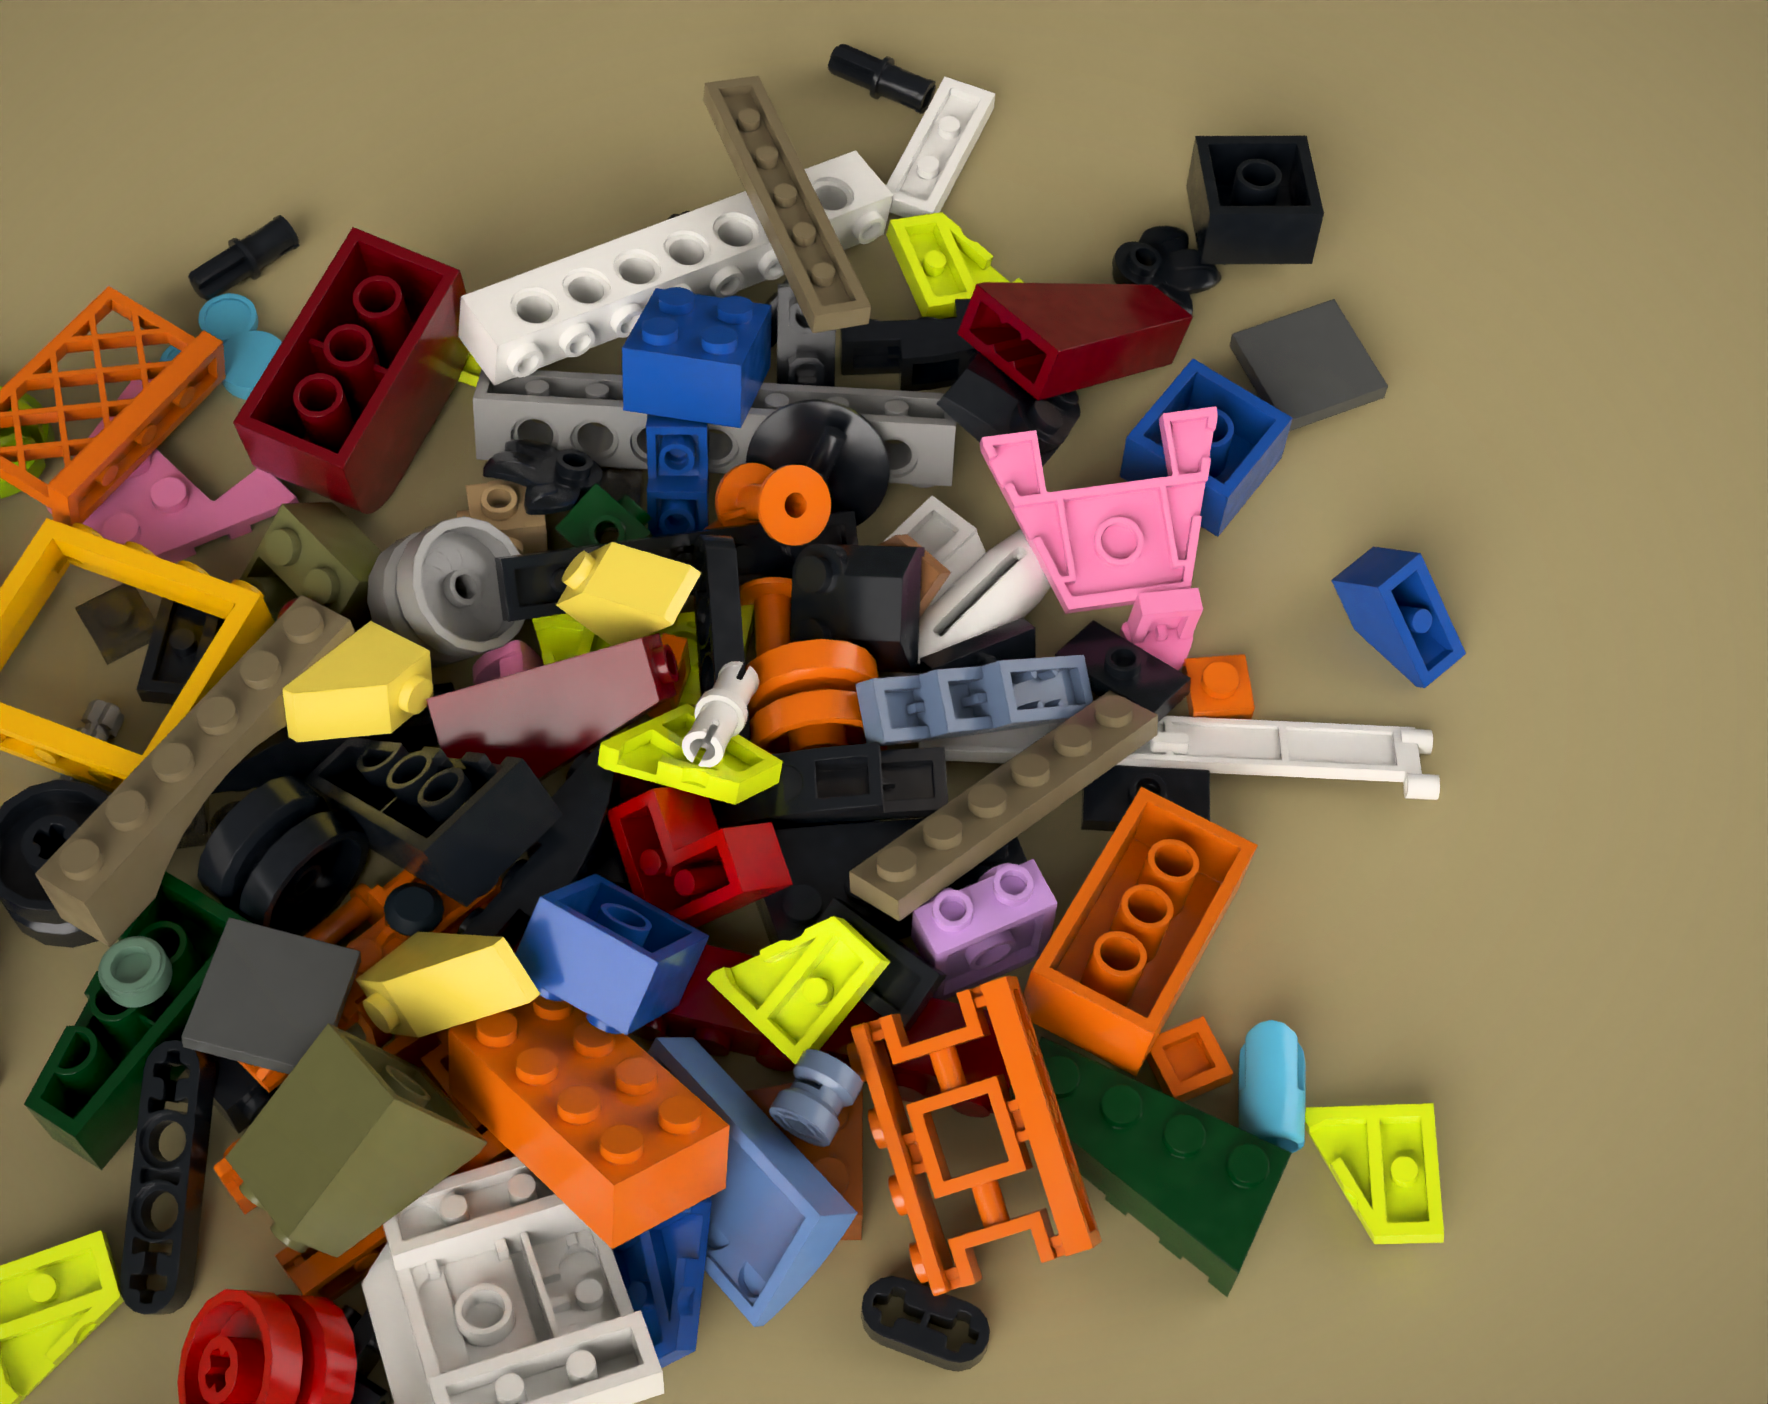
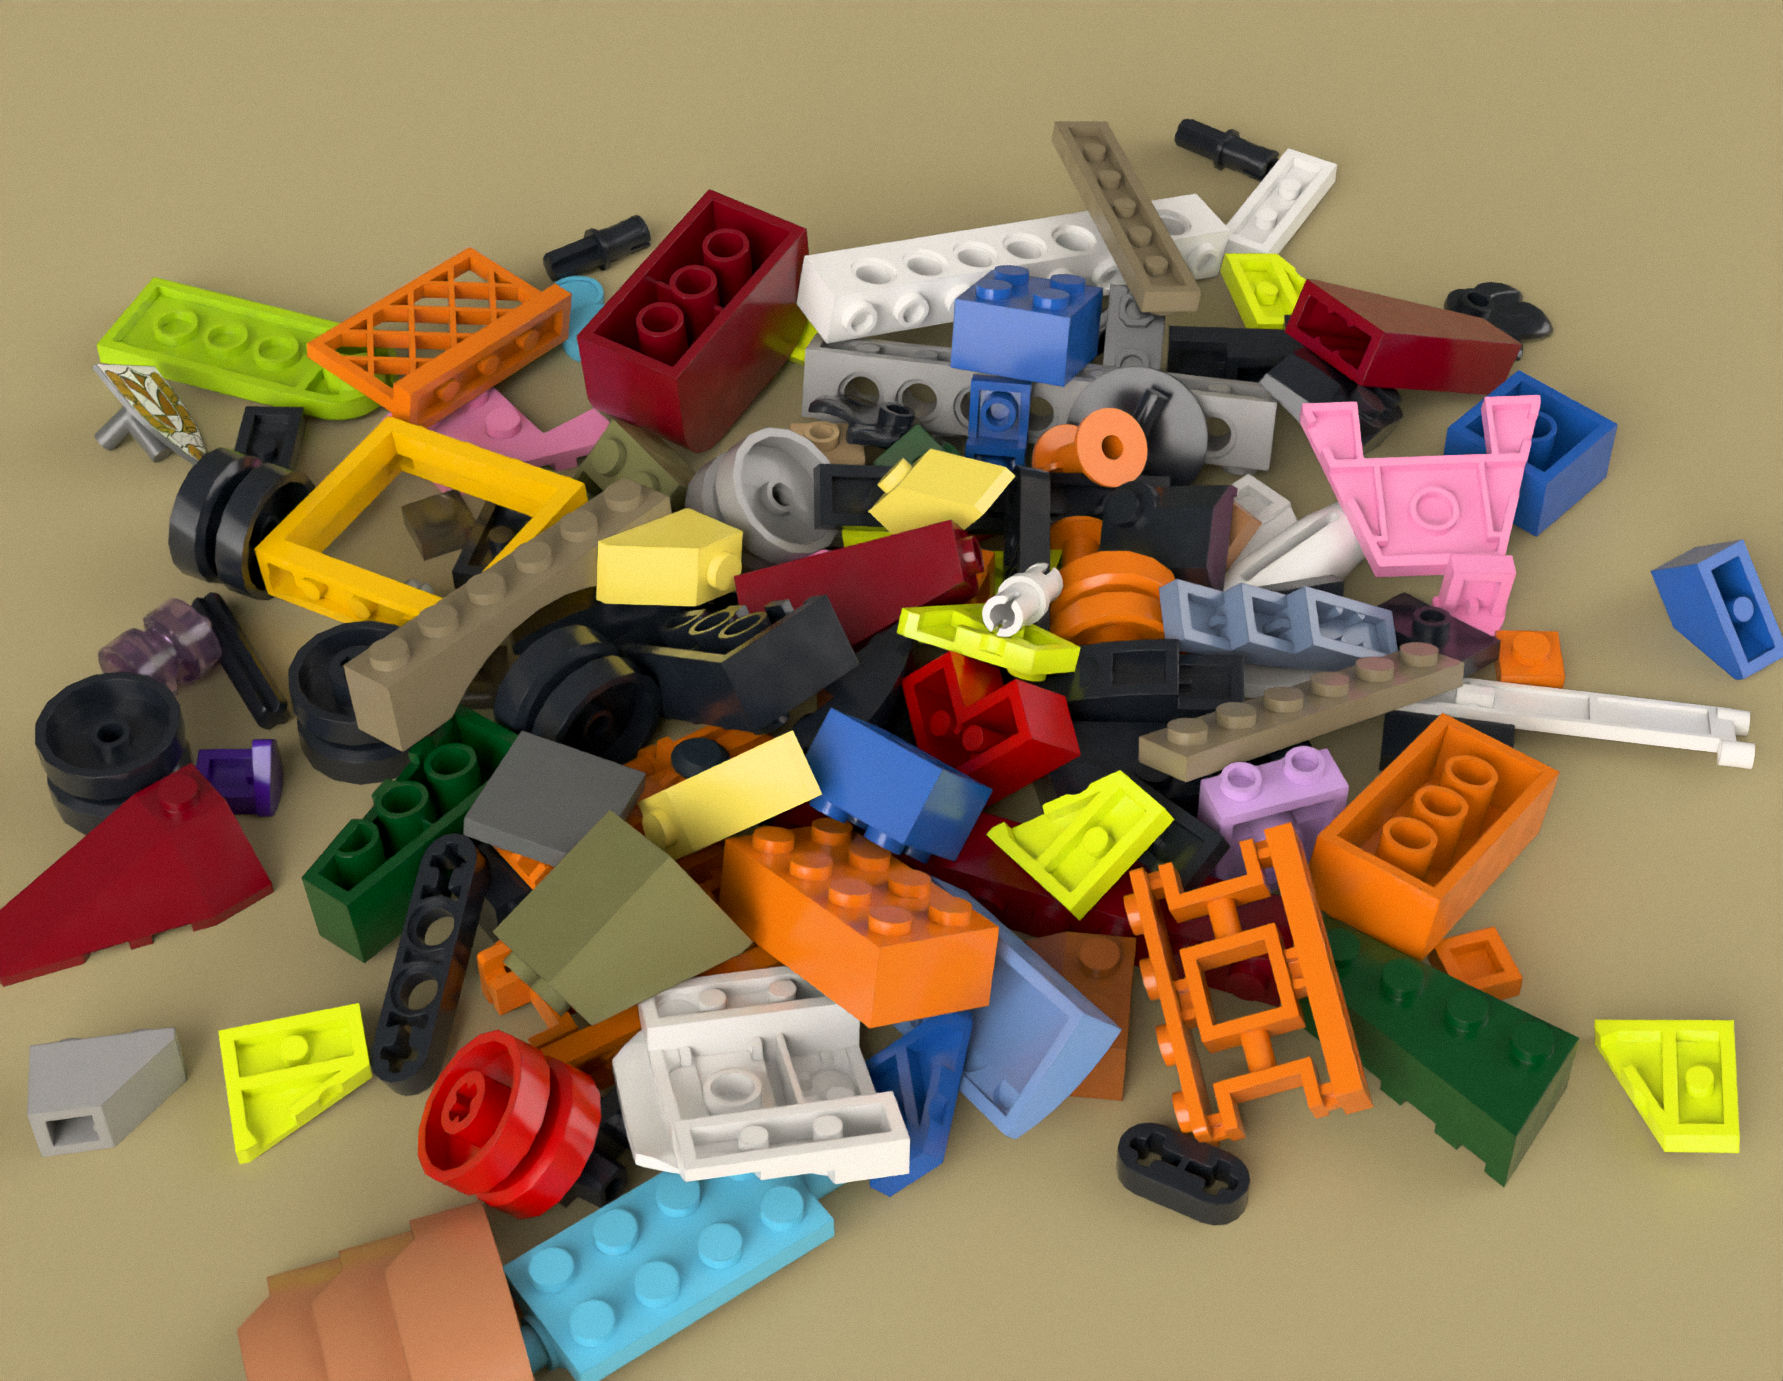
camera: 10 degrees right, 15 degrees down
(135, 971) = (424, 776): sand green tile -> none
(816, 1097) = (1082, 936): sand blue wheel -> none
(1254, 200) = (1590, 259): black brick -> none
(1273, 1086) = (1566, 987): medium azure arm -> none
(1309, 364) = (1644, 396): dark grey tile -> none

